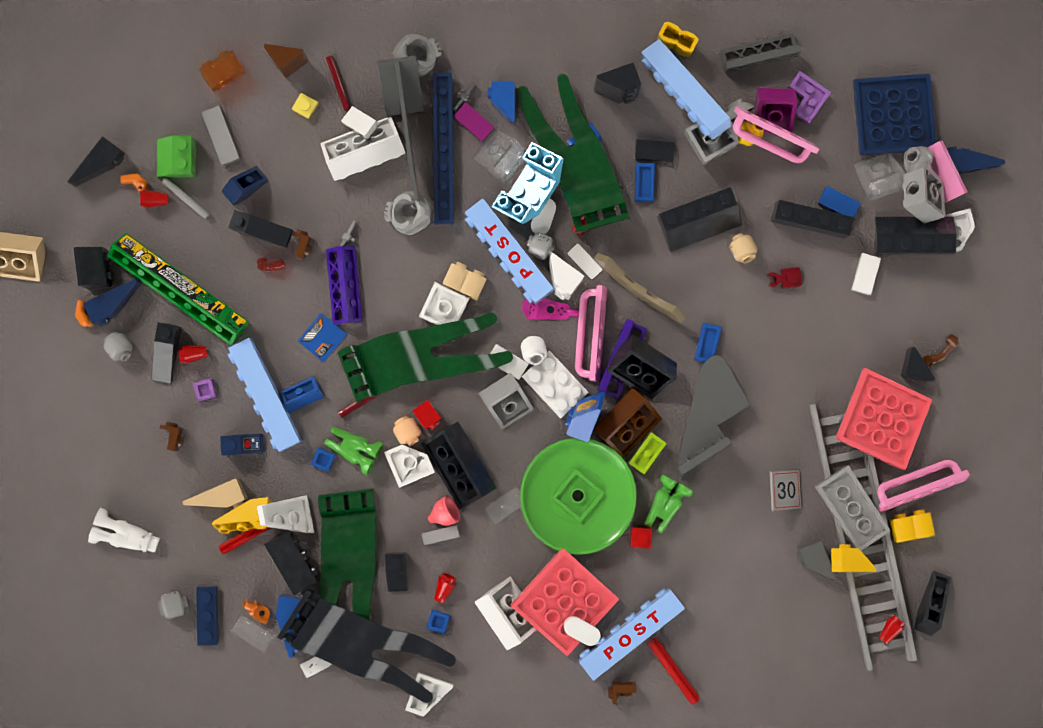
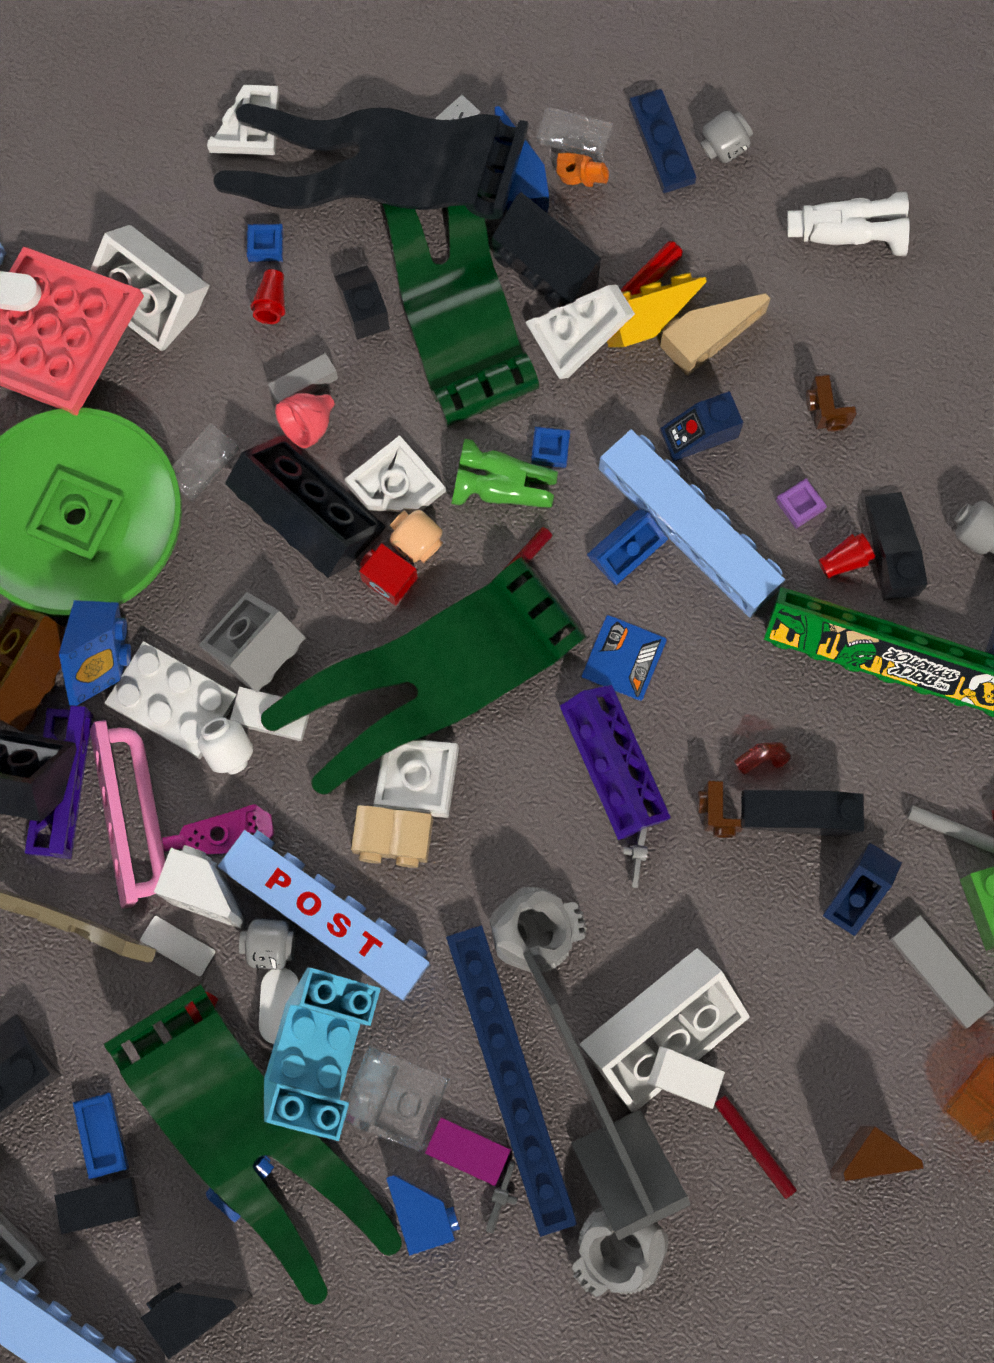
camera: 170 degrees right, 10 degrees down
(305, 106) = (803, 1080): light yellow plate -> none

